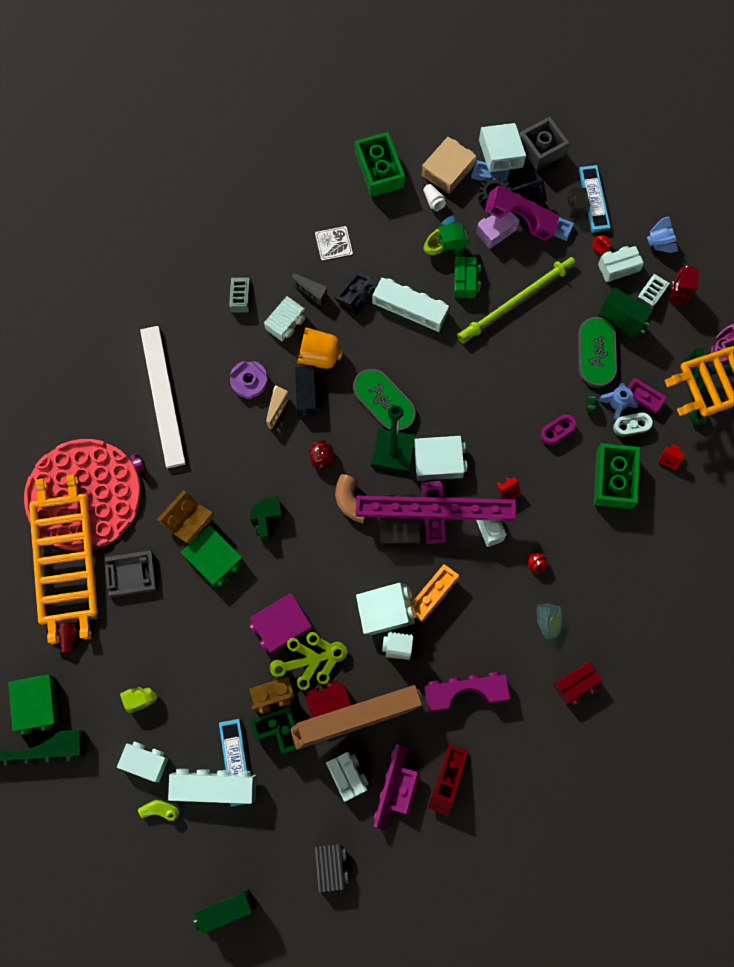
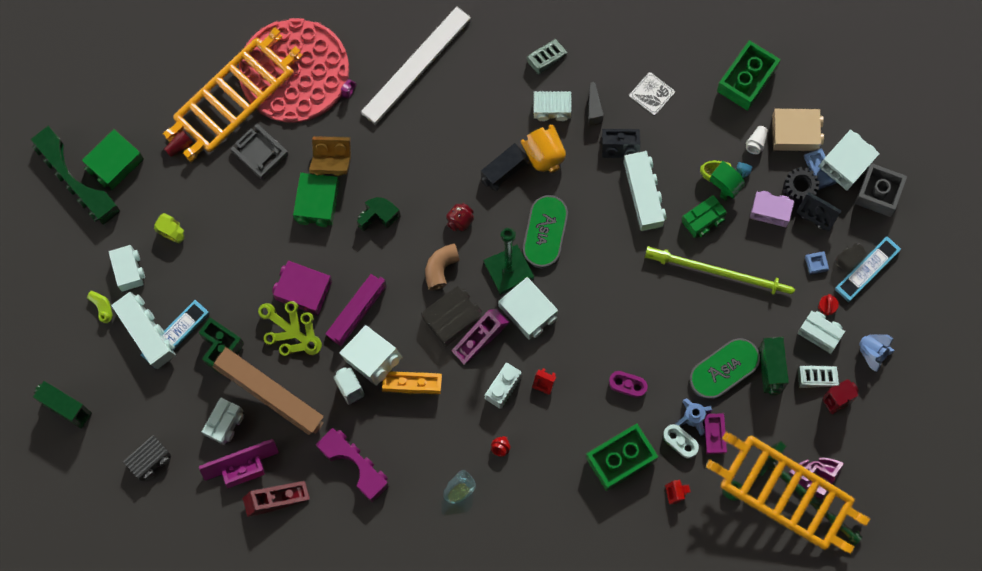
camera: 55 degrees right, 0 degrees up
(249, 369) = (473, 109): medium lavender plate -> none
(272, 695) = (243, 322): pearl gold bracket -> none
(278, 402) = (476, 153): tan slope -> none
(327, 700) = (272, 366): dark red brick -> none
(333, 594) = (356, 309): none -> magenta fence
(436, 508) = (478, 333): magenta plate -> none
(540, 220) = (804, 240): magenta arch -> none
(577, 683) = (424, 545): dark red brick -> none
(591, 403) = (672, 394): dark green tile -> none

